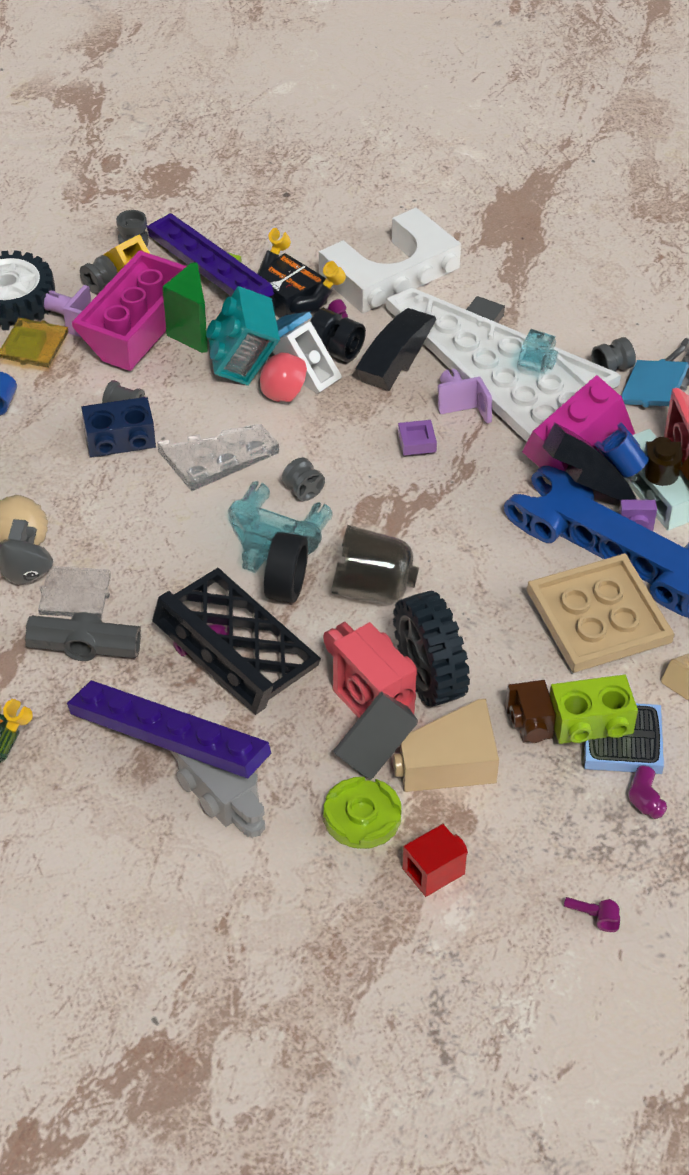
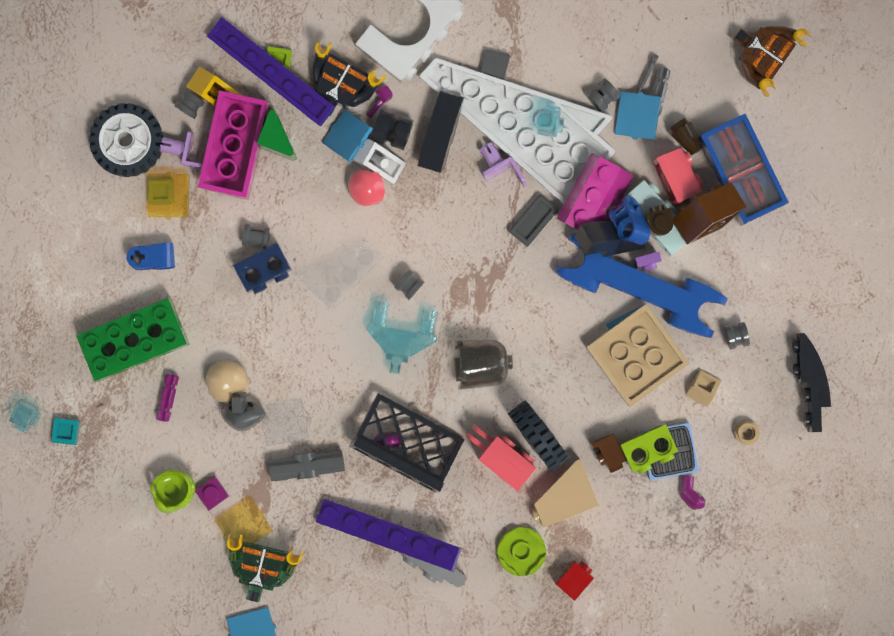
camera: 10 degrees left, 40 degrees up
(135, 224) = (197, 40): dark grey wheel -> none
(242, 335) = (327, 162): teal piece -> none
(285, 567) = (423, 379): black tyre -> none
(376, 735) = (520, 507): dark grey slope -> none
(417, 437) = (478, 219): medium lavender plate -> none
(490, 457) = (533, 220): none -> dark grey tile
(606, 912) = (683, 587): magenta hand -> none

